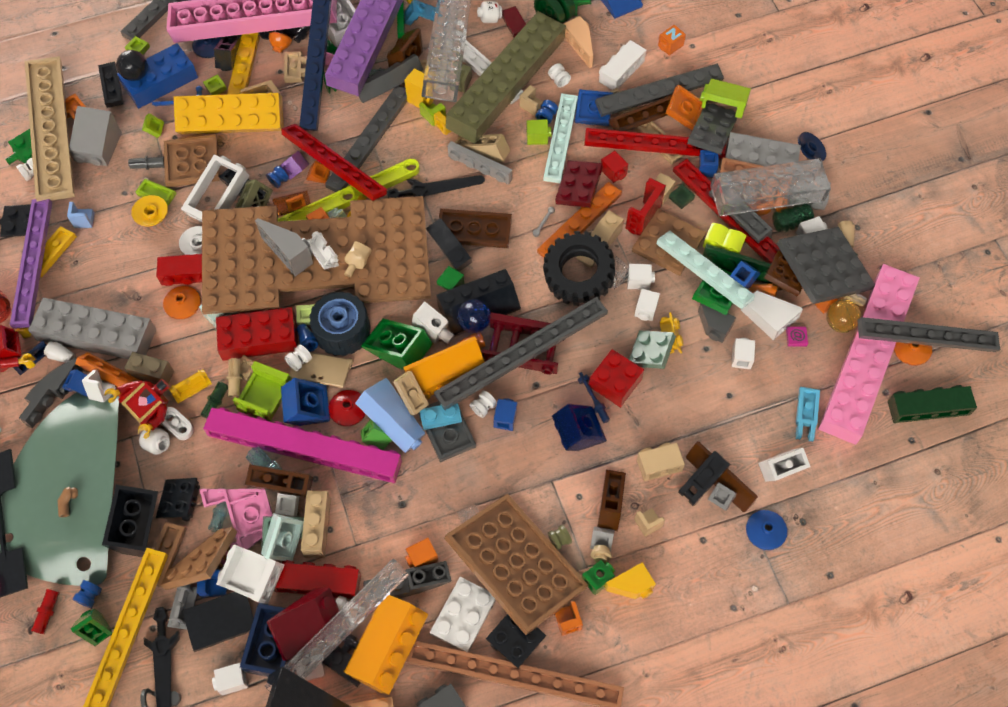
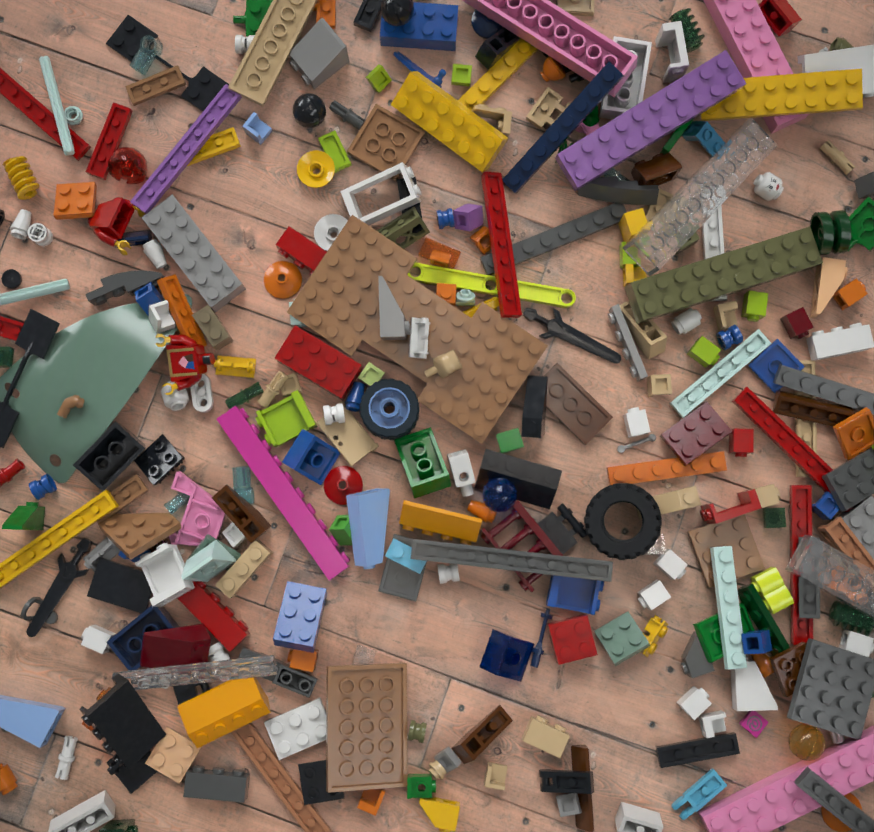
camera: 40 degrees right, 20 degrees up
(114, 176) = (309, 110): none -> black piece
(392, 520) = (300, 617): none -> brick
(411, 393) = (394, 524): tan plate -> none
(505, 414) = (459, 596): blue brick -> none
(508, 122) = (686, 321): none -> white brick
(513, 20) = (783, 213): dark red tile -> none
(524, 170) = (659, 385): none -> tan panel
(531, 206) = (636, 422): none -> white brick
(540, 314) = (557, 531): none -> black plate
(545, 82) = (754, 305): none -> lime brick
(559, 75) = (774, 307): white wheel -> none
(583, 74) = (797, 323): none -> dark red brick
(588, 346) = (574, 594): none -> blue panel
(601, 35) = (850, 294): none -> orange brick
(768, 358) = (712, 723): none -> white panel
(776, 384) = (697, 750): none -> black plate

